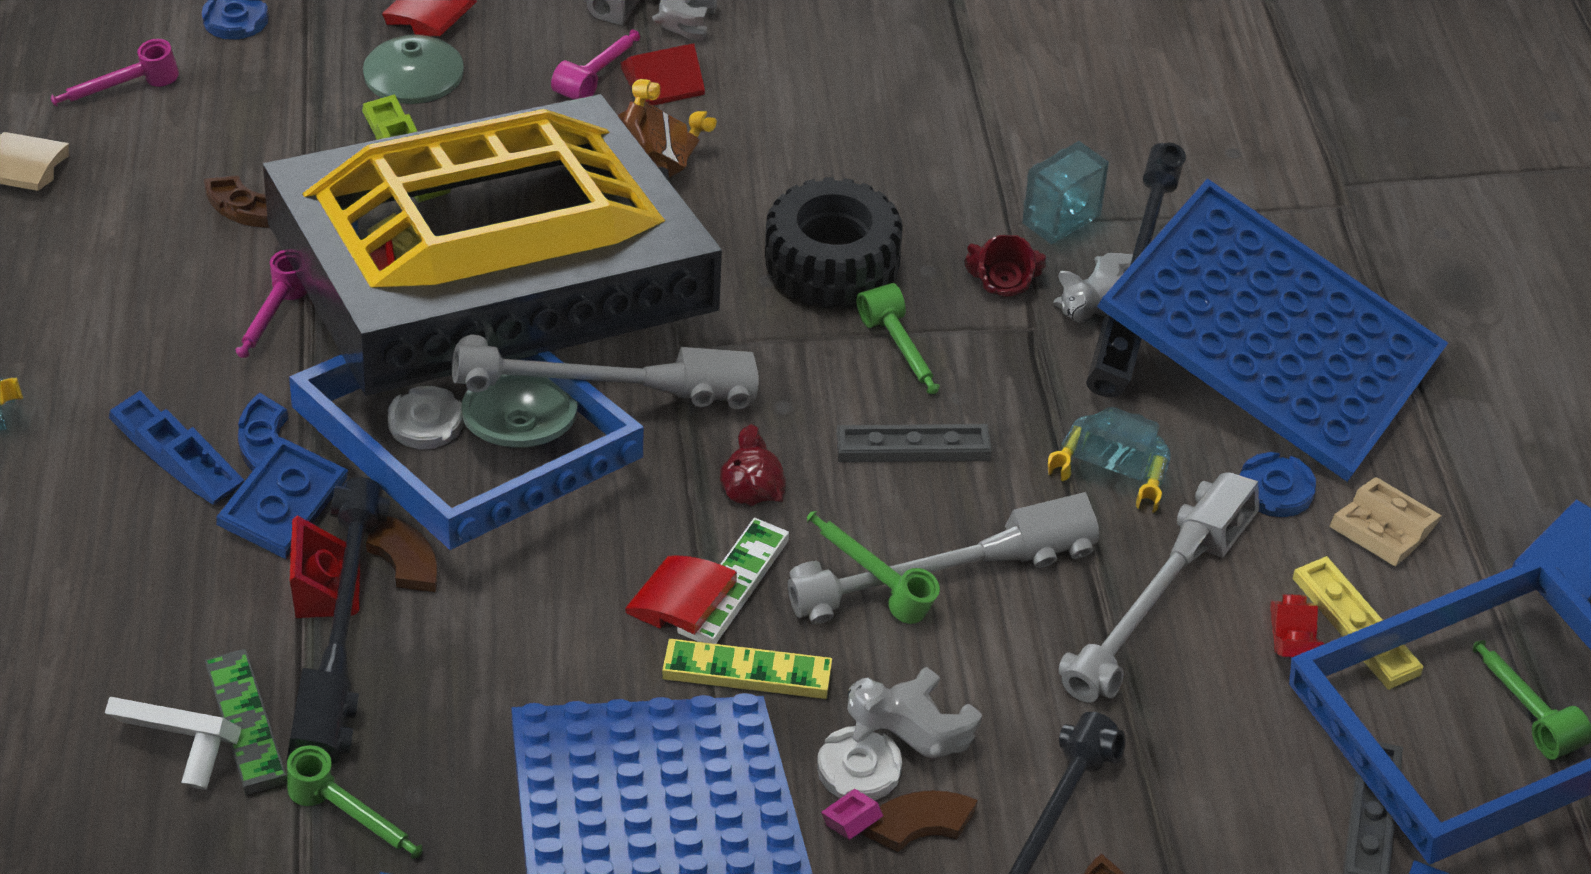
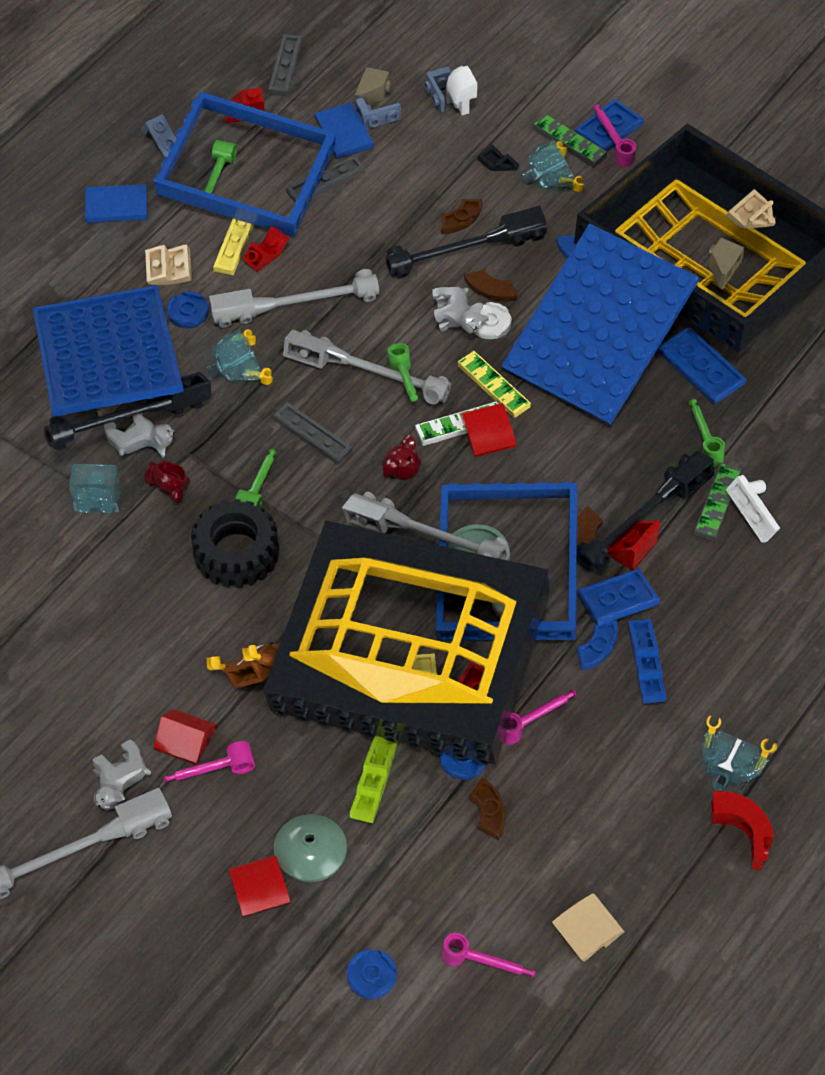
camera: 135 degrees left, 10 degrees up
(852, 814) = (517, 299): dark pink tile -> none

